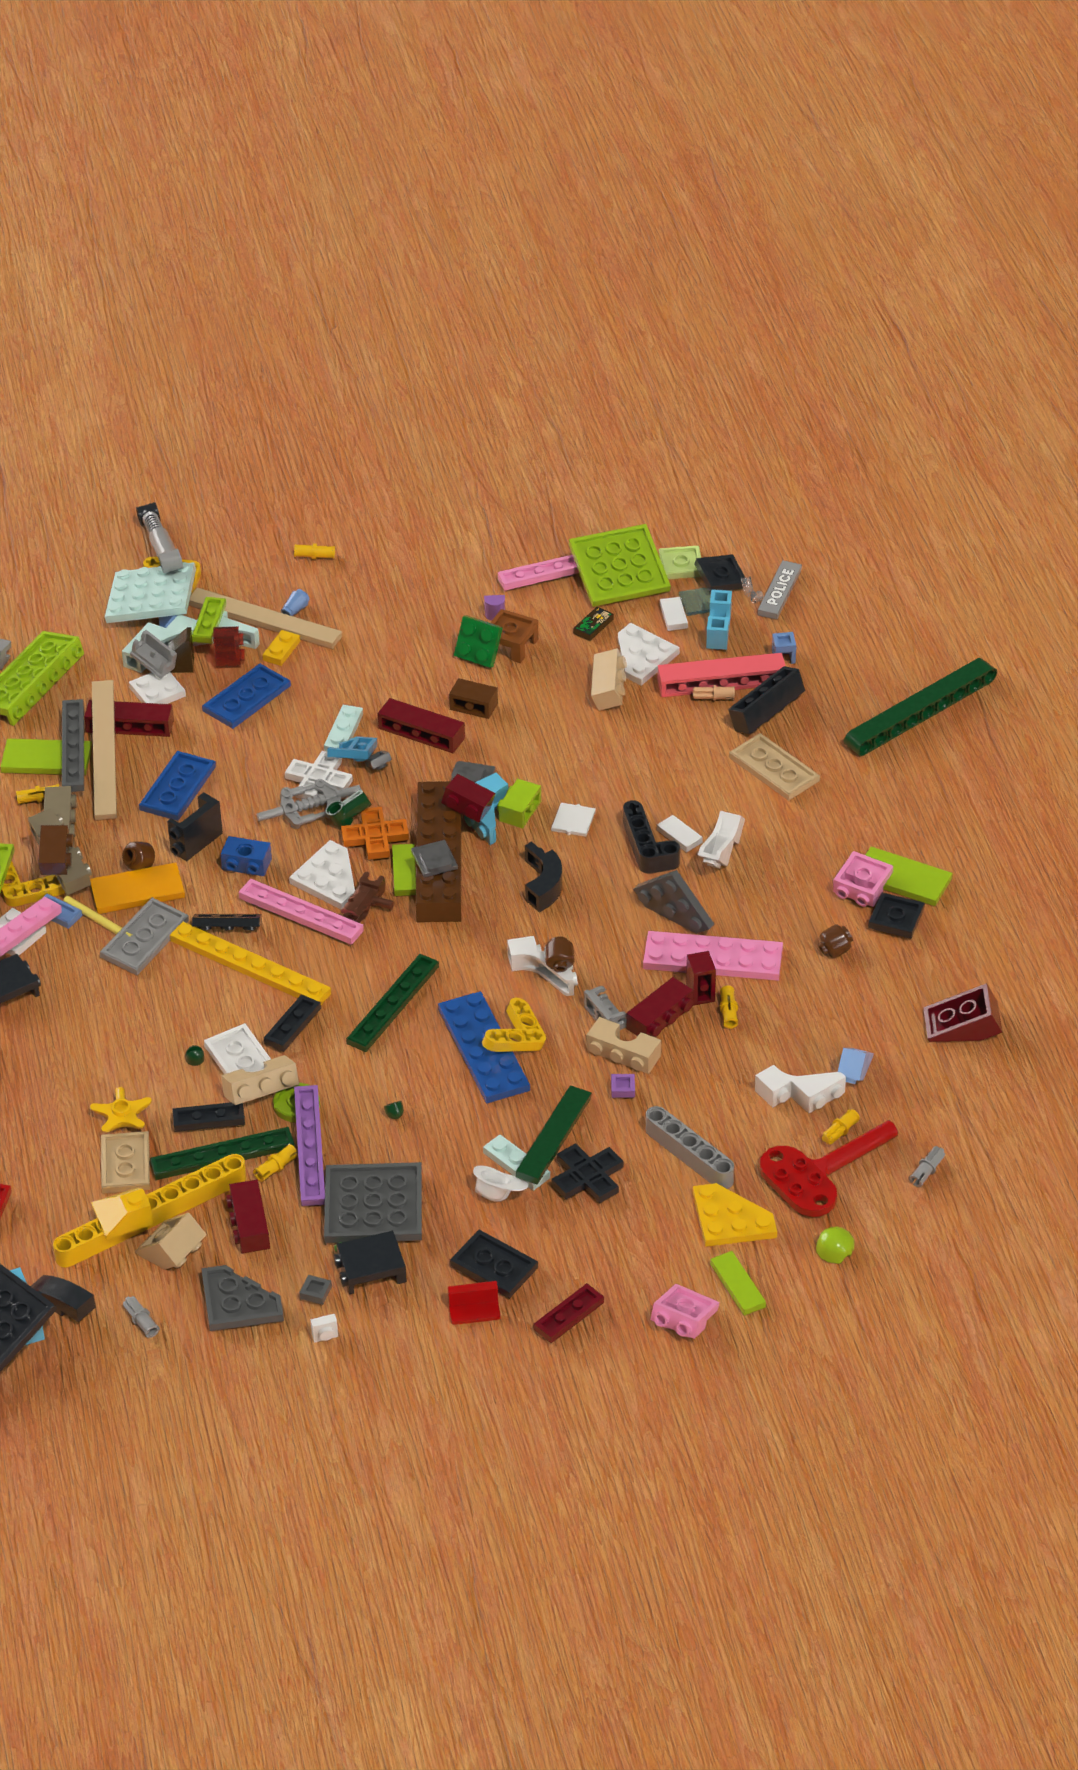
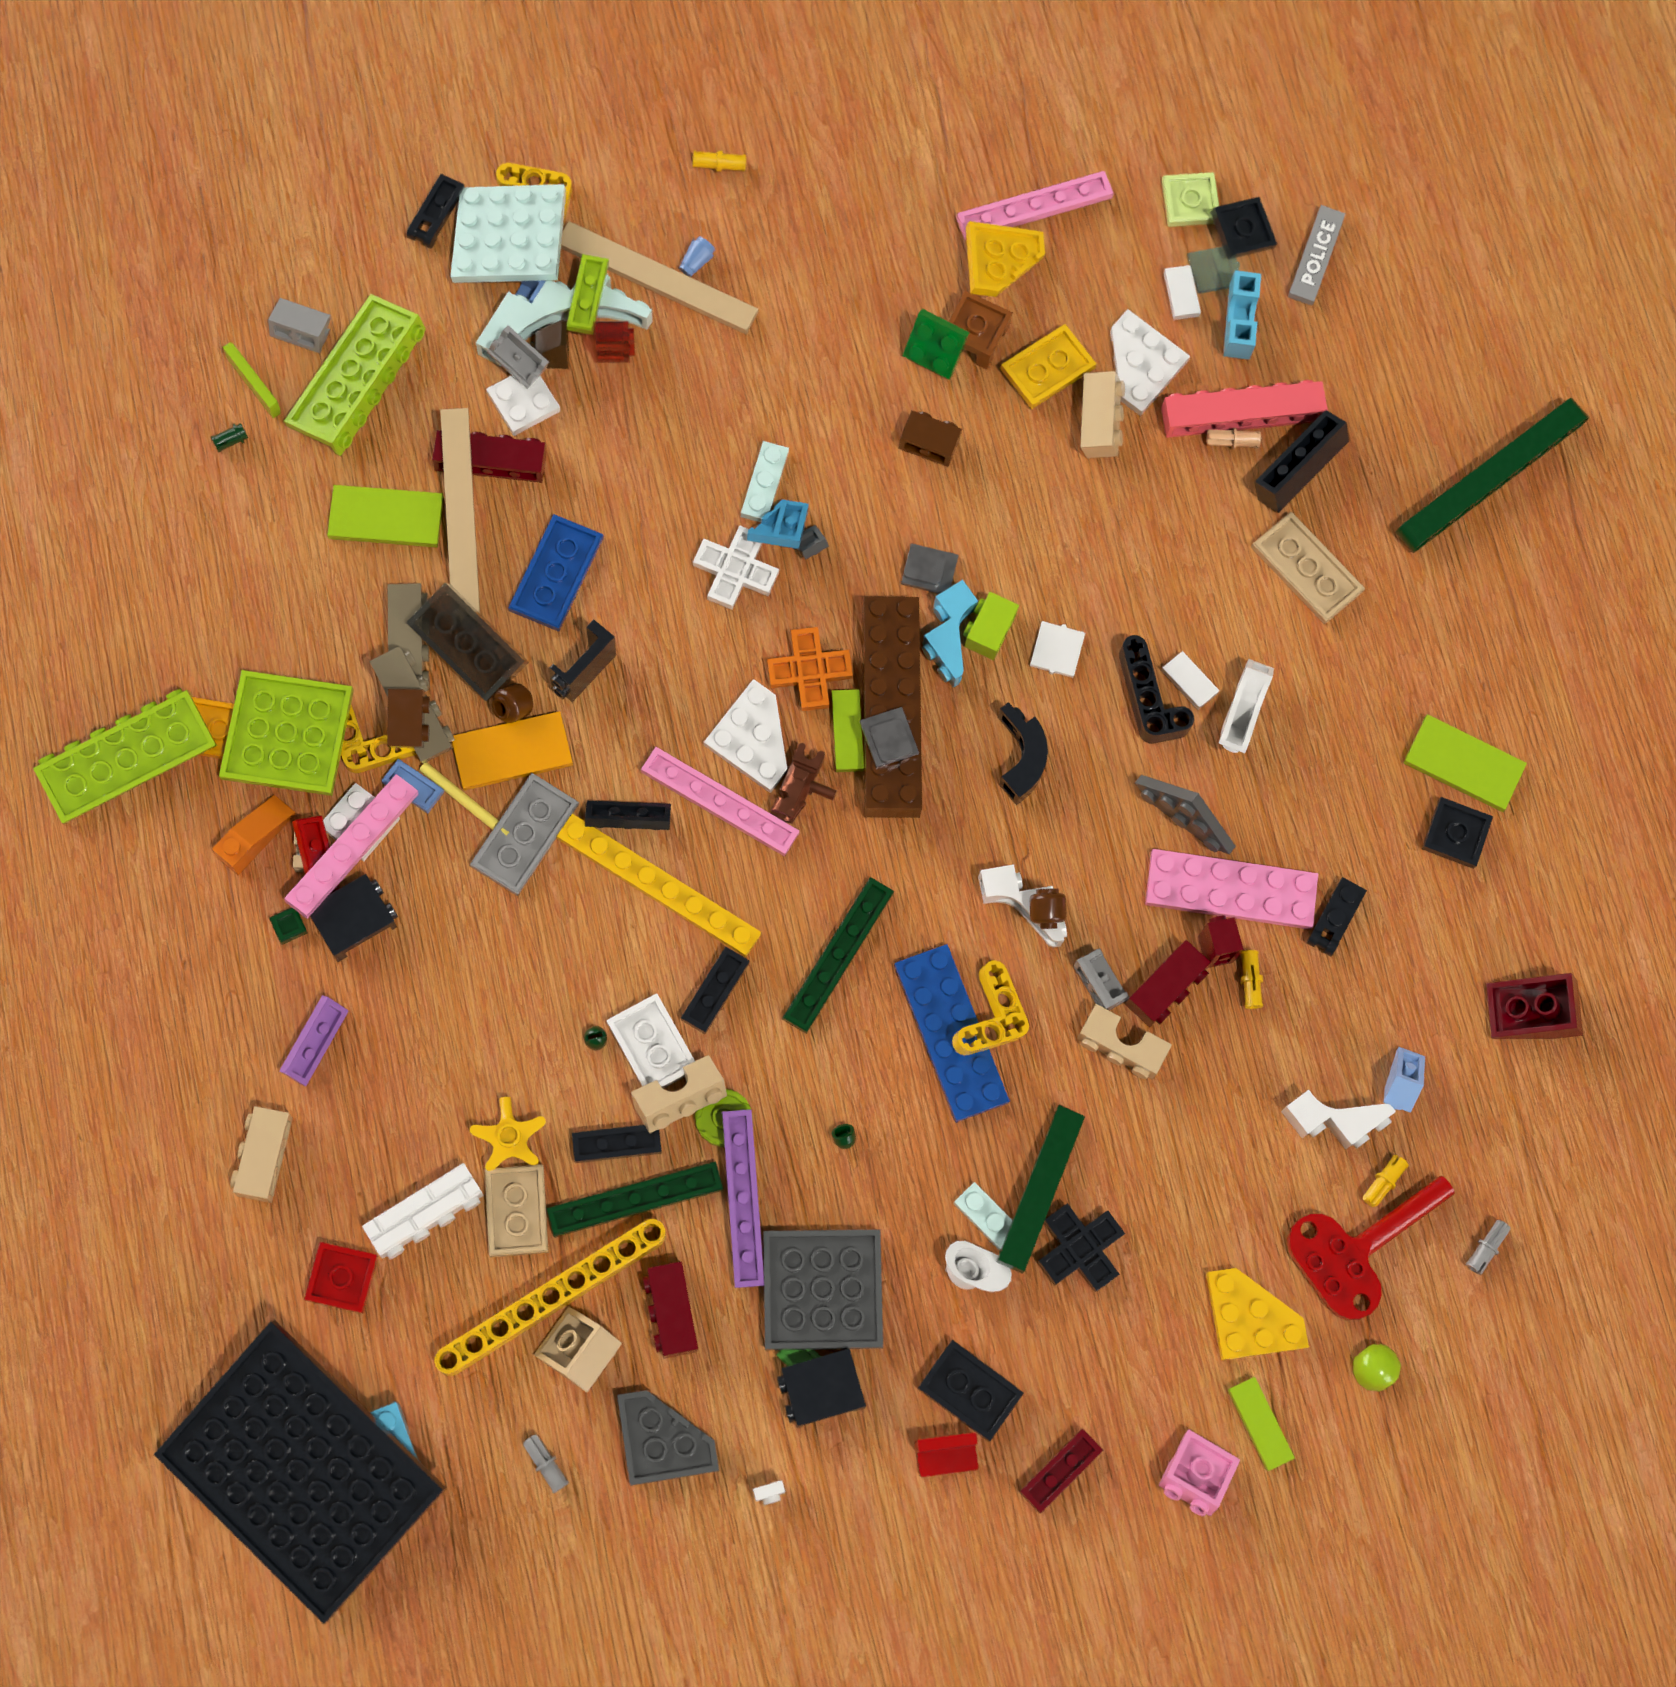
camera: 10 degrees left, 30 degrees up
(31, 795) = (376, 584): yellow pin -> none
(49, 1159) = (423, 1211): none -> white brick
(66, 1296) = (447, 1432): black slope -> none
(73, 744) = (420, 507): dark grey plate -> none
(95, 585) = (435, 210): none -> black plate
(105, 814) = (467, 641): none -> clear smoke slope
(123, 1212) = (517, 1315): yellow slope -> none
(165, 550) = (517, 139): light grey piece -> none
(246, 696) = (638, 416): blue tile -> none
(246, 856) = (637, 694): blue brick -> none
(275, 1163) = (701, 1221): yellow pin -> none
(281, 647) = (681, 332): yellow plate -> none
(289, 808) = (700, 627): light grey bar -> none
(315, 1289) = (756, 1427): dark grey plate -> none
(342, 812) = (778, 633): dark green piece -> none
(421, 725) = (864, 483): dark red brick -> none
(468, 798) = (930, 638): dark red brick -> none
(493, 604) = (954, 275): medium lavender brick -> none
(528, 593) = (1000, 255): none -> yellow plate
(566, 656) = (1048, 366): none -> yellow plate
(593, 623) = (1080, 305): tile -> none
(619, 565) = (1114, 210): lime plate -> none
(622, 1085) = (1123, 1106): medium lavender plate -> none
(689, 1147) = (1218, 1218): light grey beam -> none
(749, 592) = (1278, 259): clear arm -> none
(784, 644) = (1324, 364): medium blue panel -> none
(799, 969) = (1337, 915): none -> black plate
(835, 941) = (1382, 876): reddish brown head -> none
(862, 879) = (1418, 775): bright pink plate -> none

